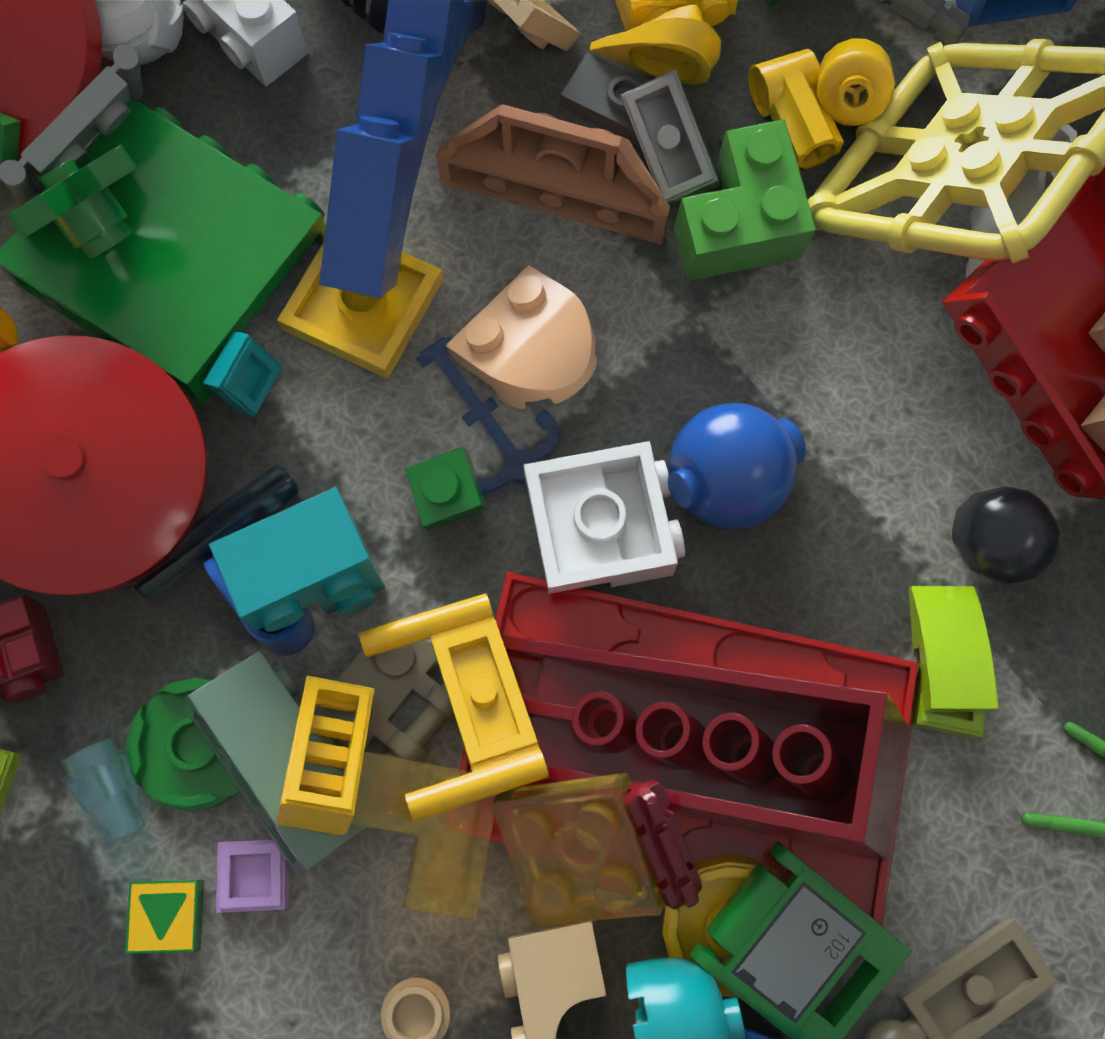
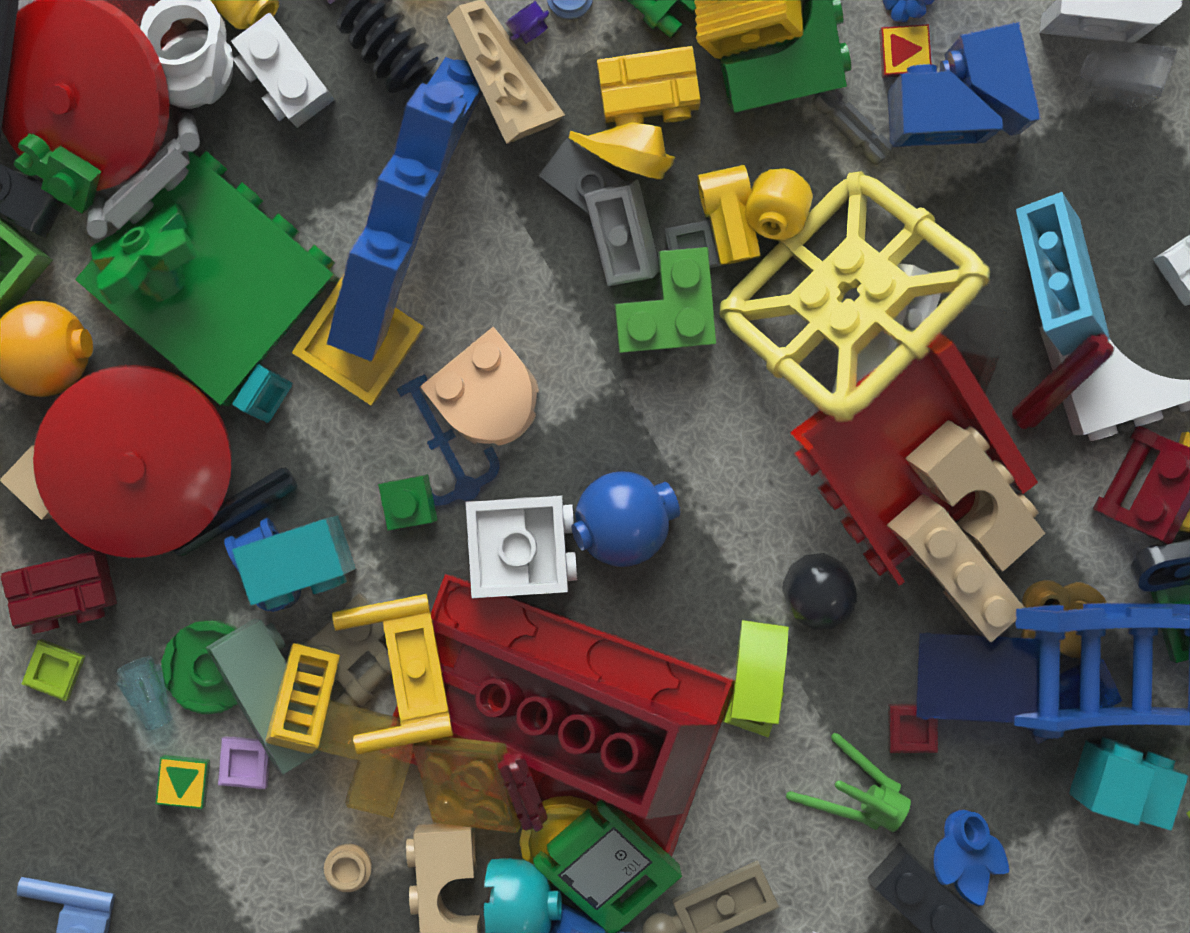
camera: 10 degrees right, 15 degrees up
(556, 170) = (527, 248): nougat wedge -> none

